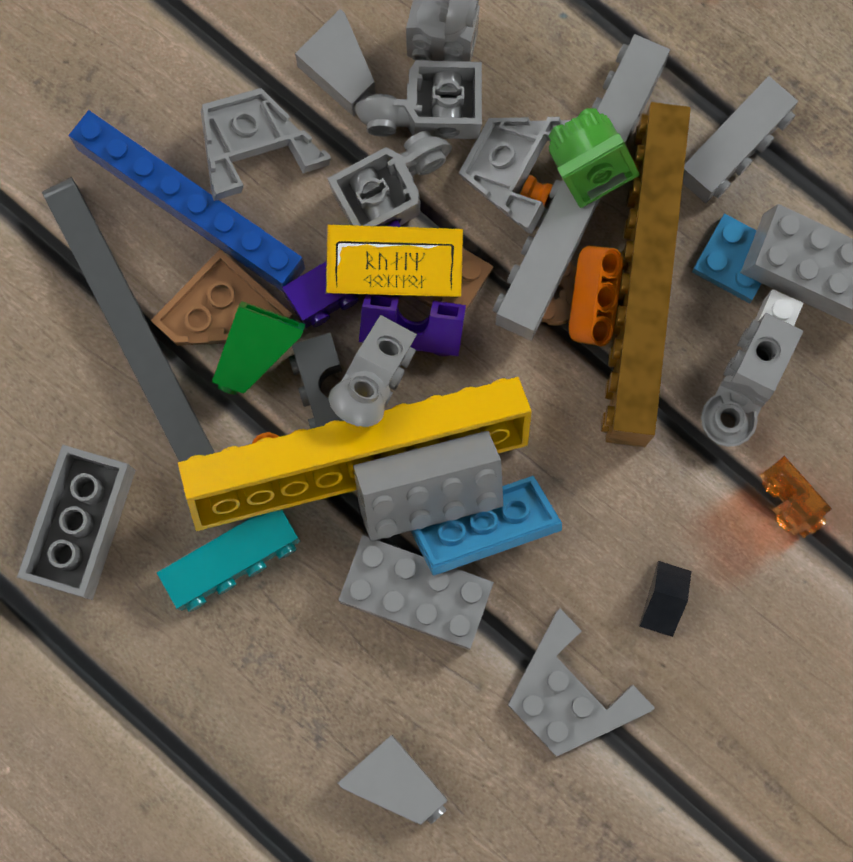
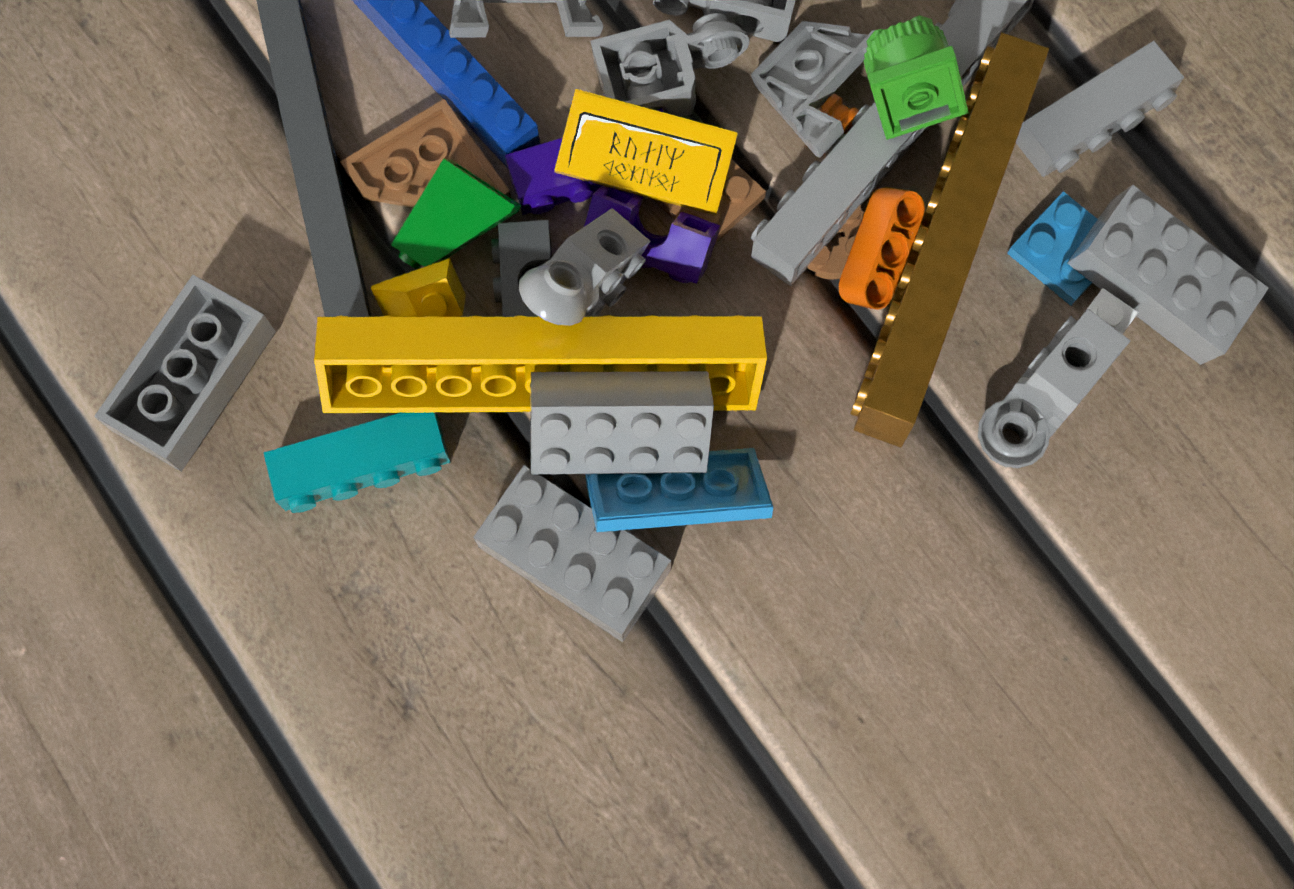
camera: 15 degrees right, 5 degrees down
(246, 417) = (422, 293): none -> yellow slope
(396, 783) = (487, 781): light grey slope -> none
(559, 705) = (717, 735): light grey wing -> none
(666, 599) = (883, 637): black slope -> none
(801, 505) = (1081, 554): clear orange plate -> none

